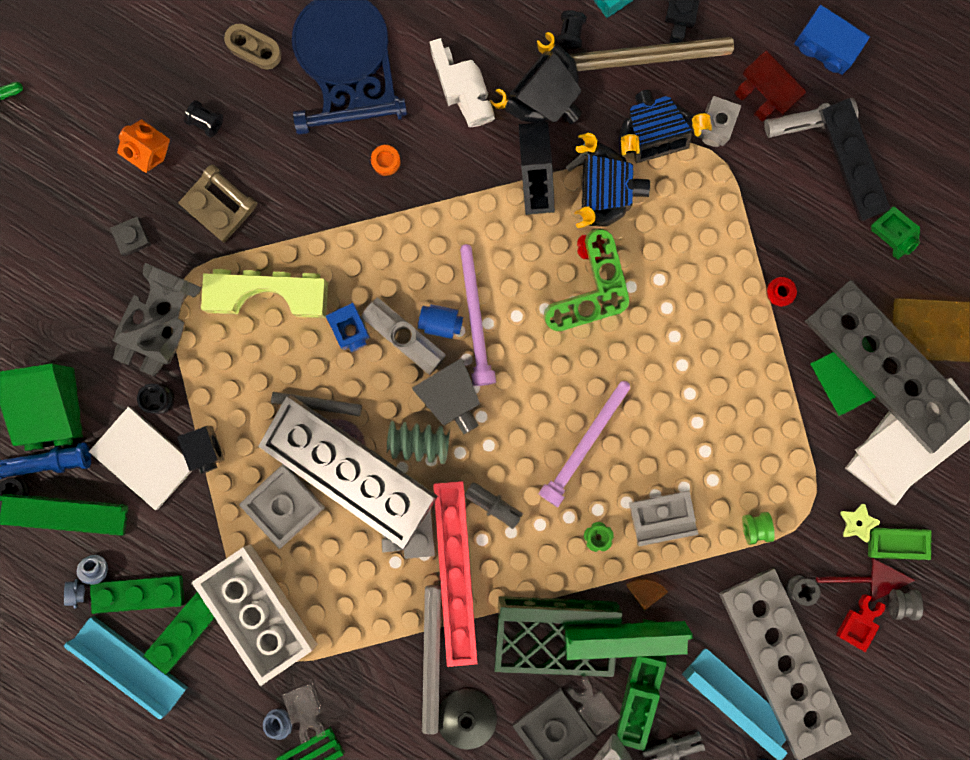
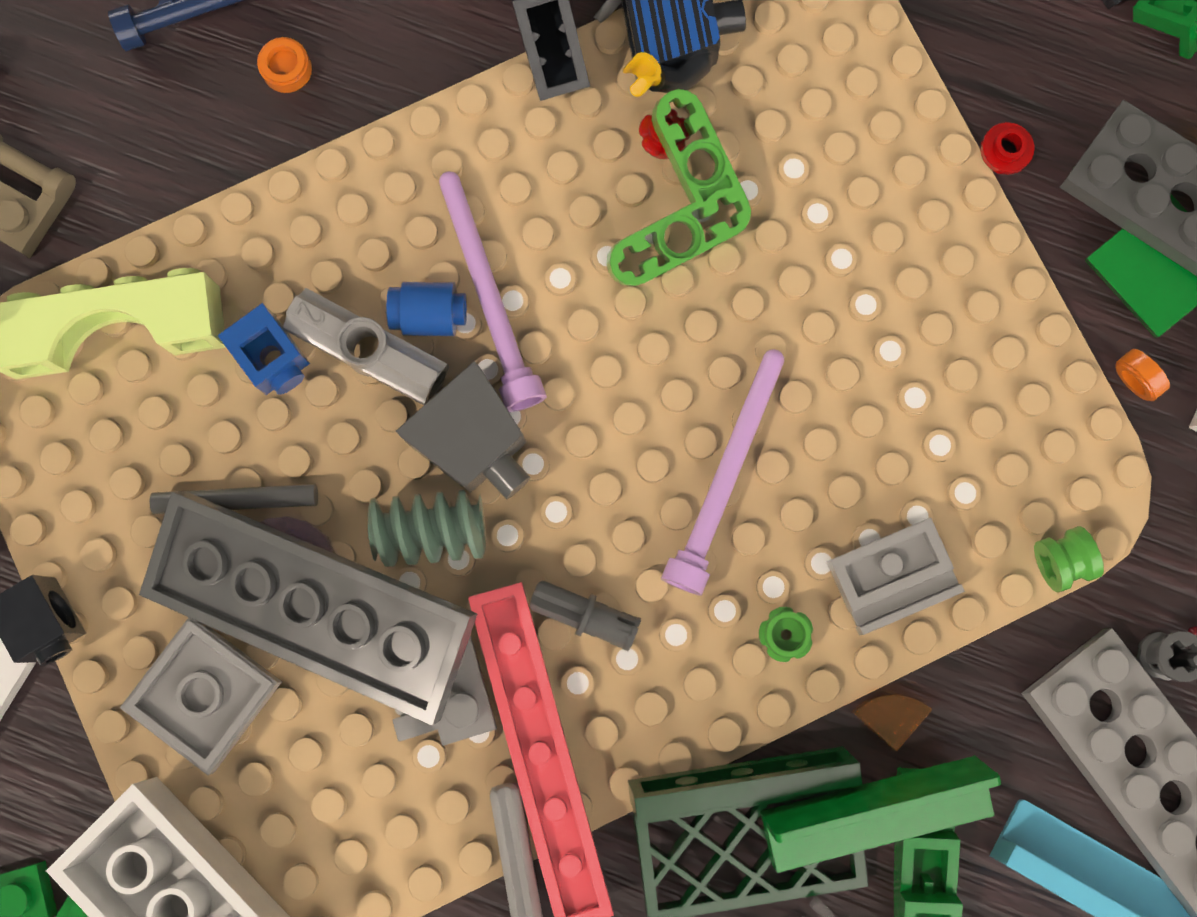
camera: 10 degrees left, 5 degrees down
(824, 435) = (1142, 375): none -> orange tile

